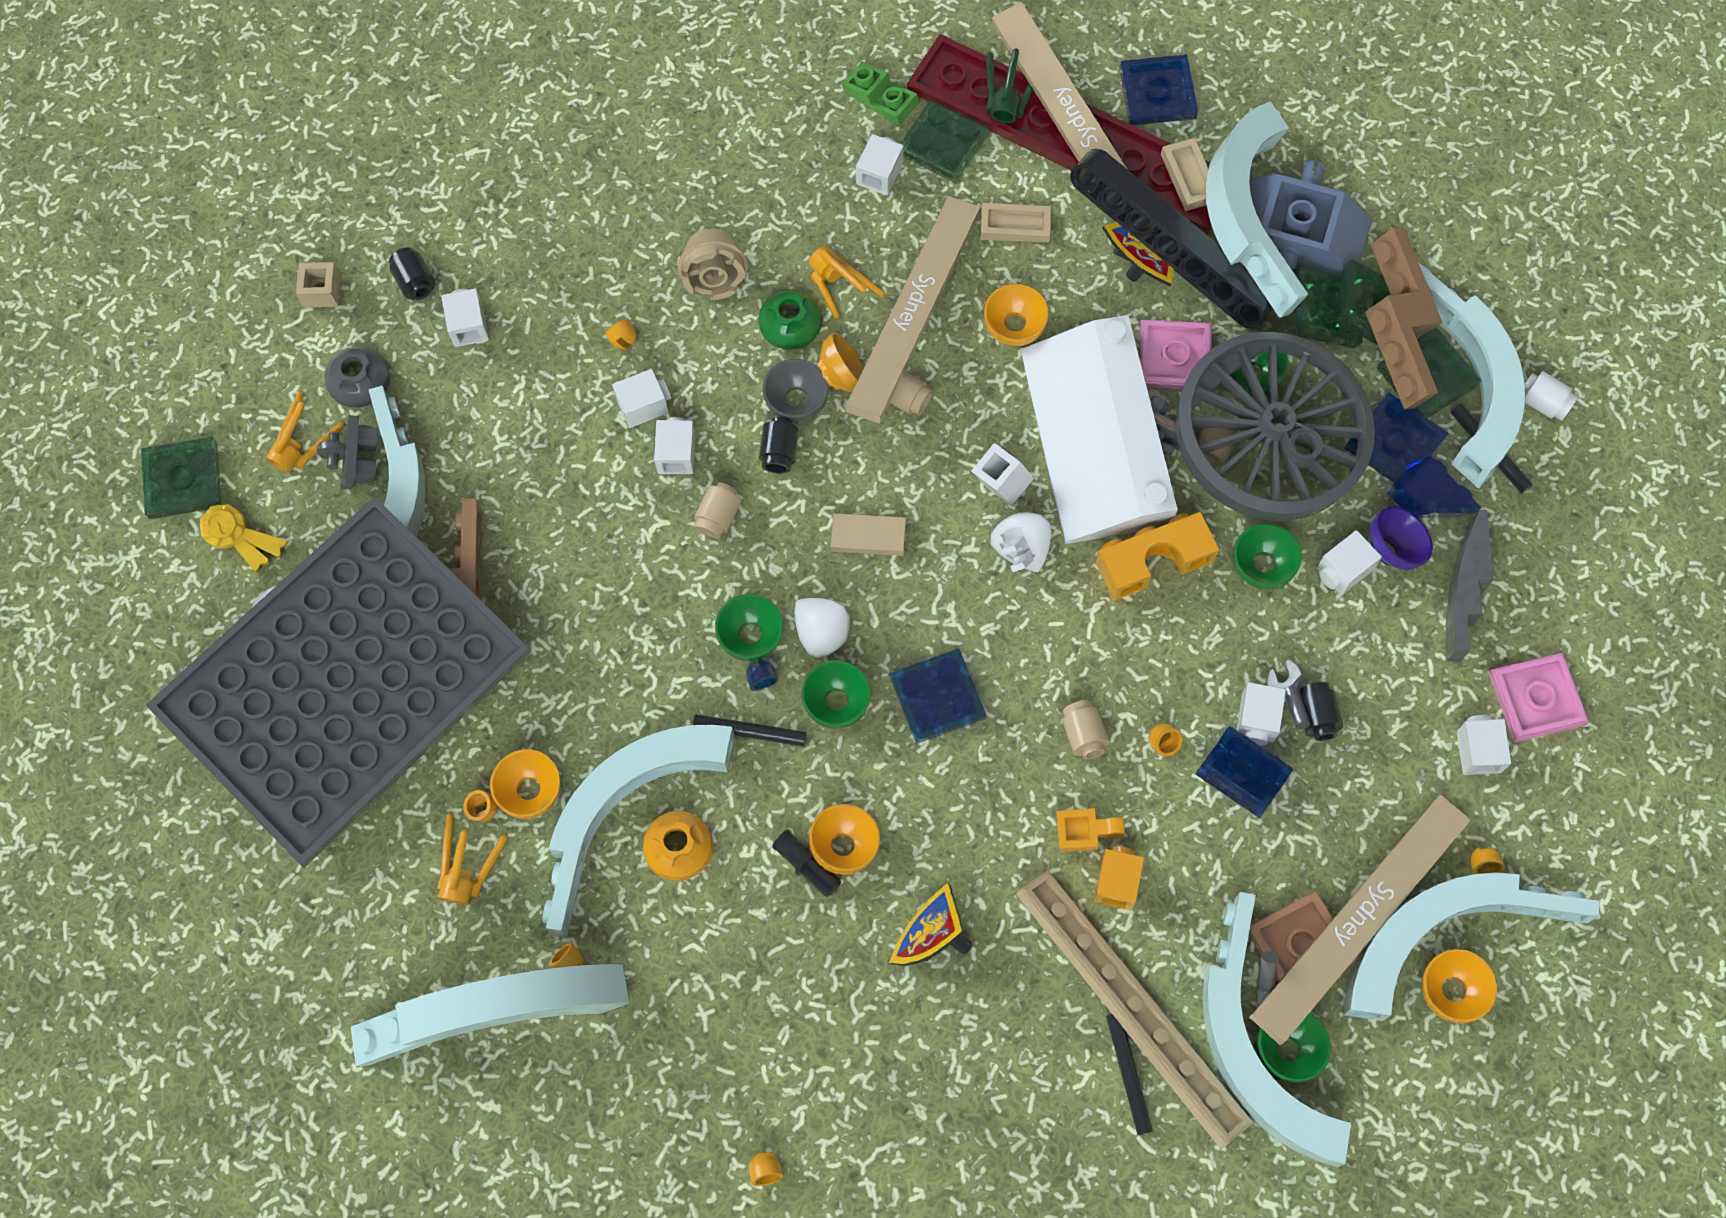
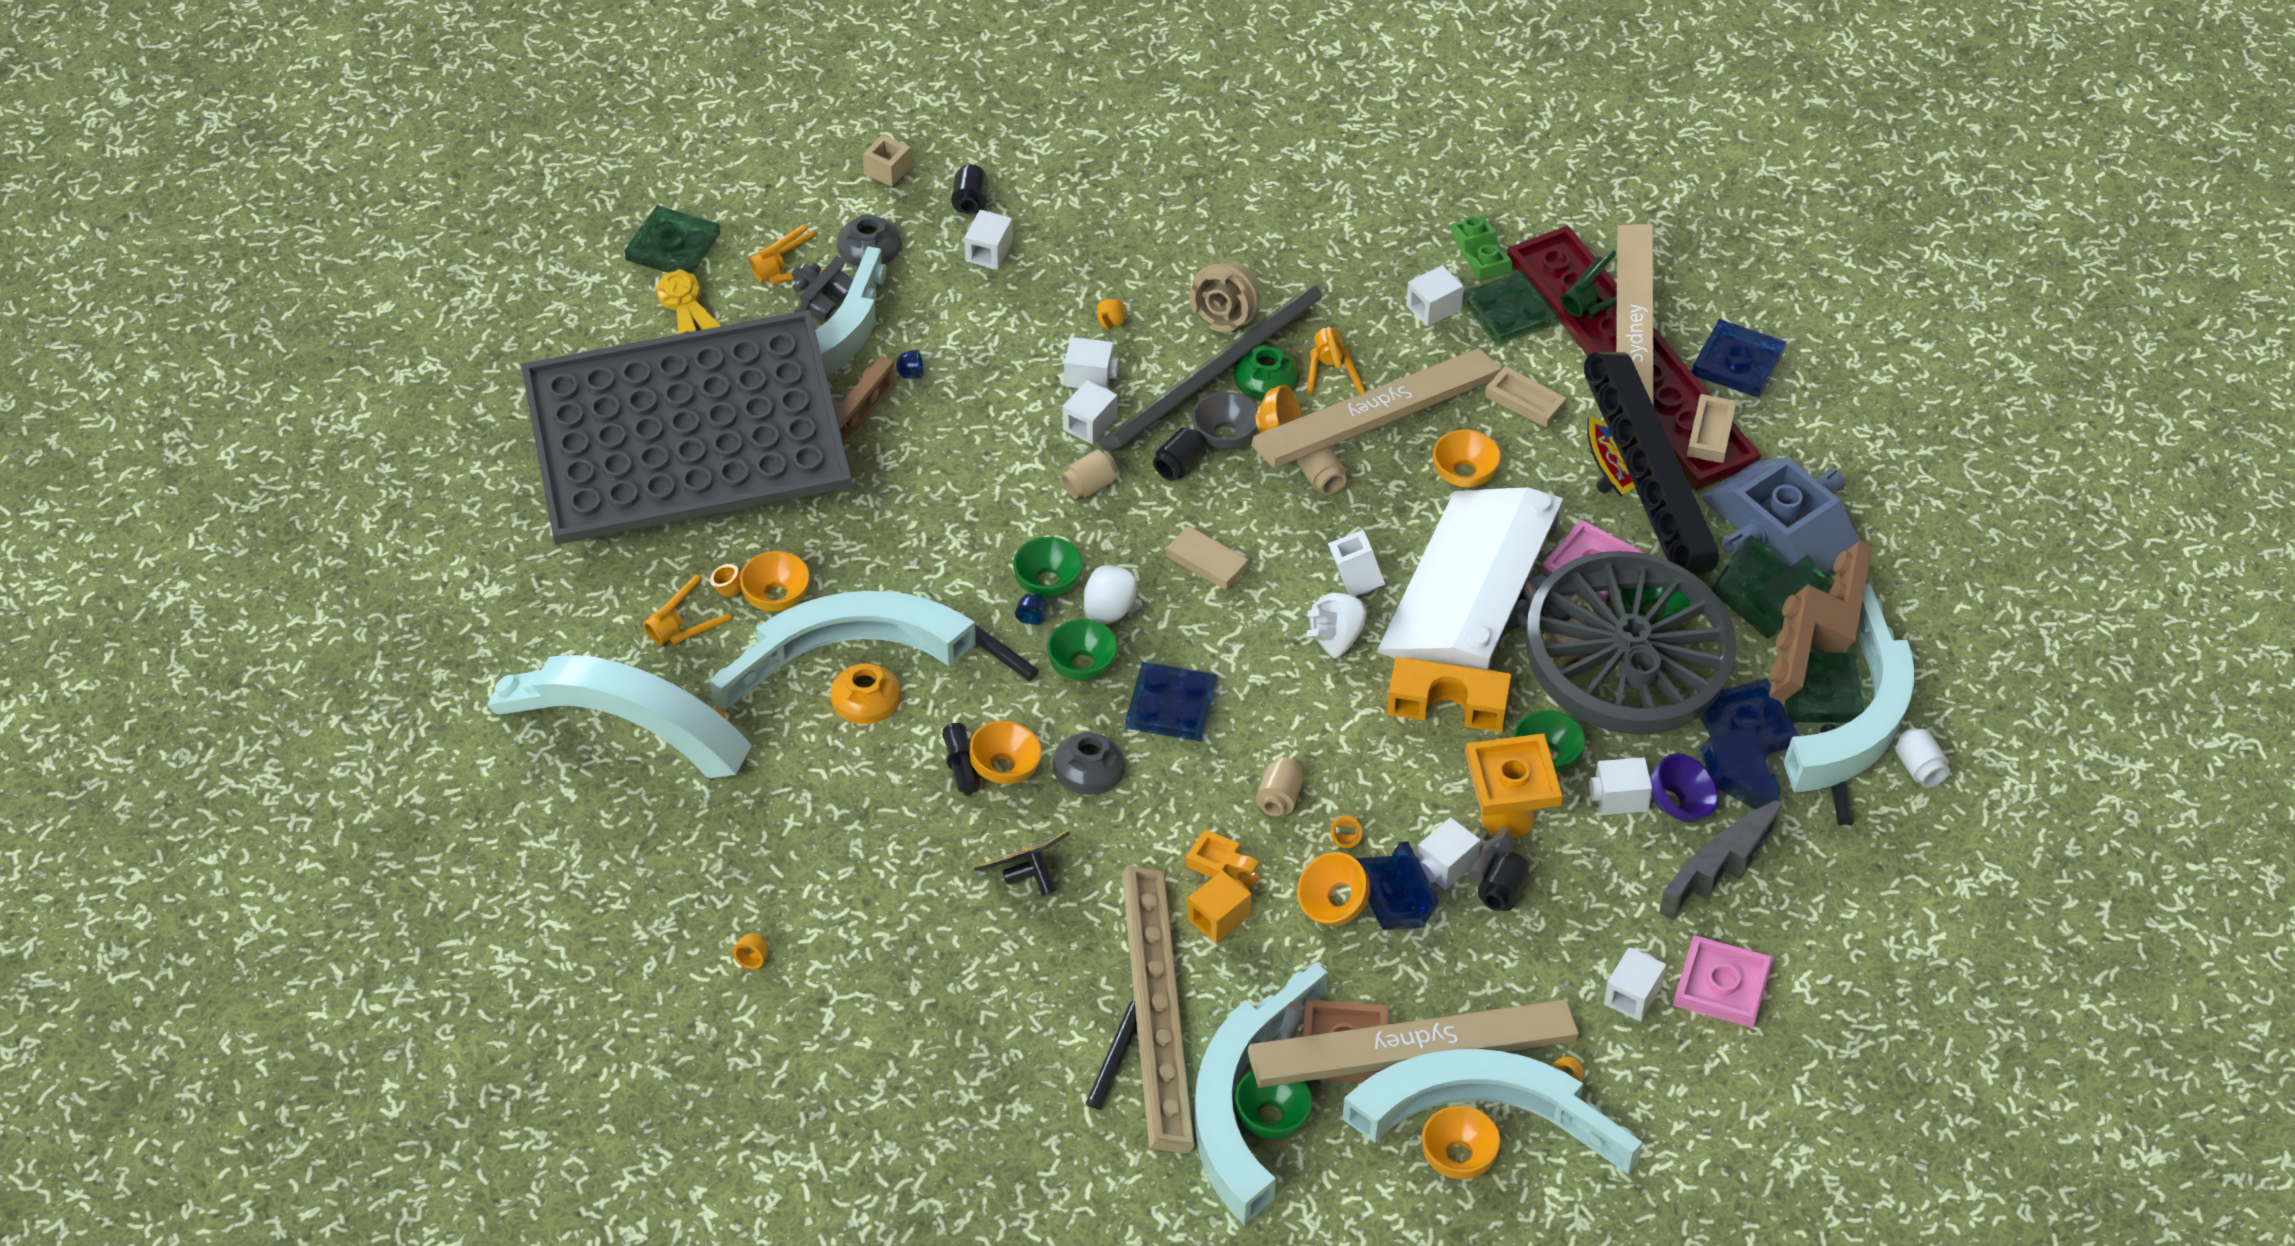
camera: 30 degrees right, 20 degrees down
(484, 486) = (910, 365): none -> clear blue hinge
(745, 345) = (1210, 369): none -> dark grey tile
(912, 817) = (1088, 773): none -> dark grey piece
(1201, 827) = (1320, 881): none -> light orange piece
(1234, 214) = (1769, 426): light aqua arch -> none
(1283, 621) = (1513, 781): none -> light orange plant

